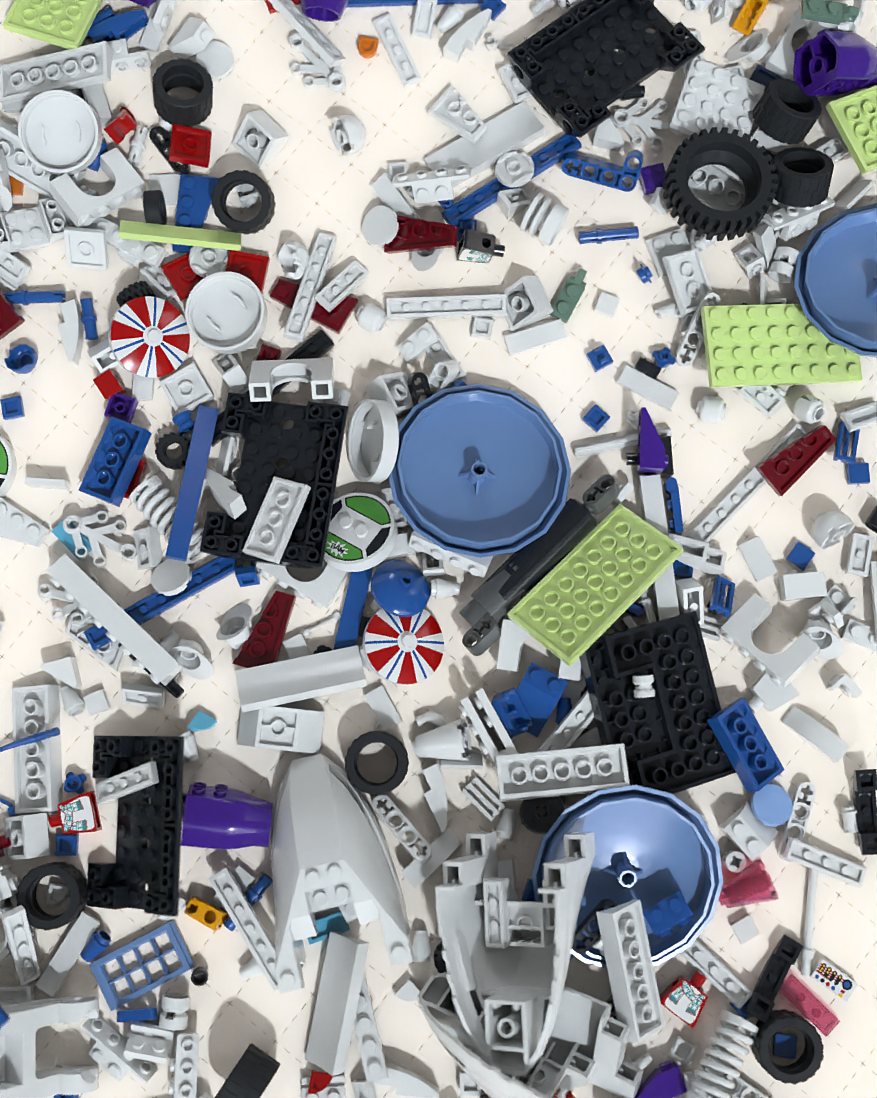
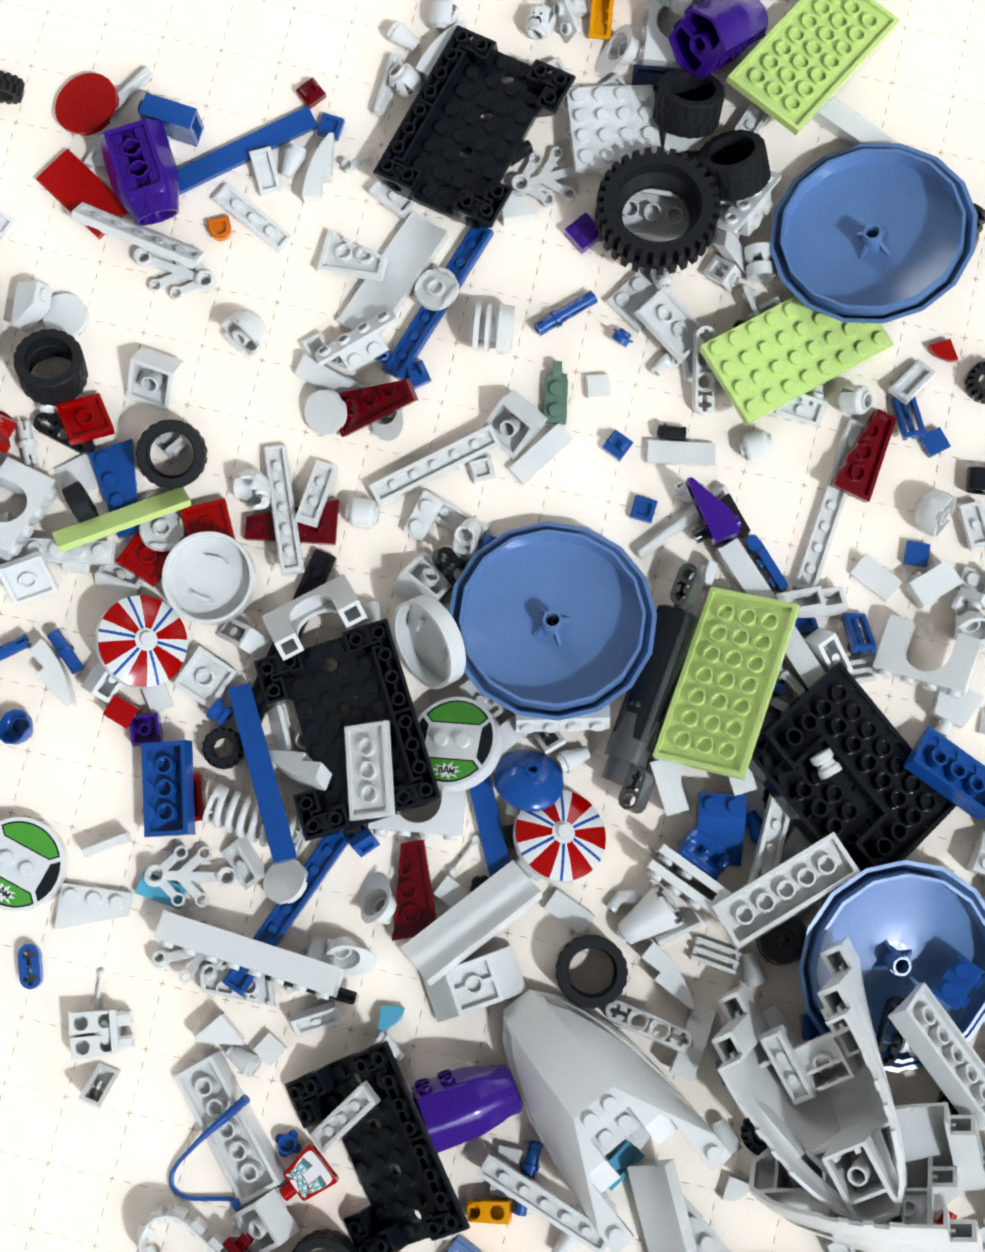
camera: 25 degrees left, 0 degrees up
(12, 408) = (29, 782): blue tile -> none
(67, 844) = (311, 1211): blue tile -> none
(134, 291) = (102, 602): black tyre -> none
(268, 353) = (272, 600): dark red tile -> none
(478, 247) = (439, 388): black torso -> none
(512, 201) = (451, 323): white slope -> none
(601, 167) = (526, 245): blue beam -> none
(658, 202) = (600, 256): white tile -> none
(661, 362) = (681, 420): blue plate -> none
(853, 195) = (795, 157): white slope -> none

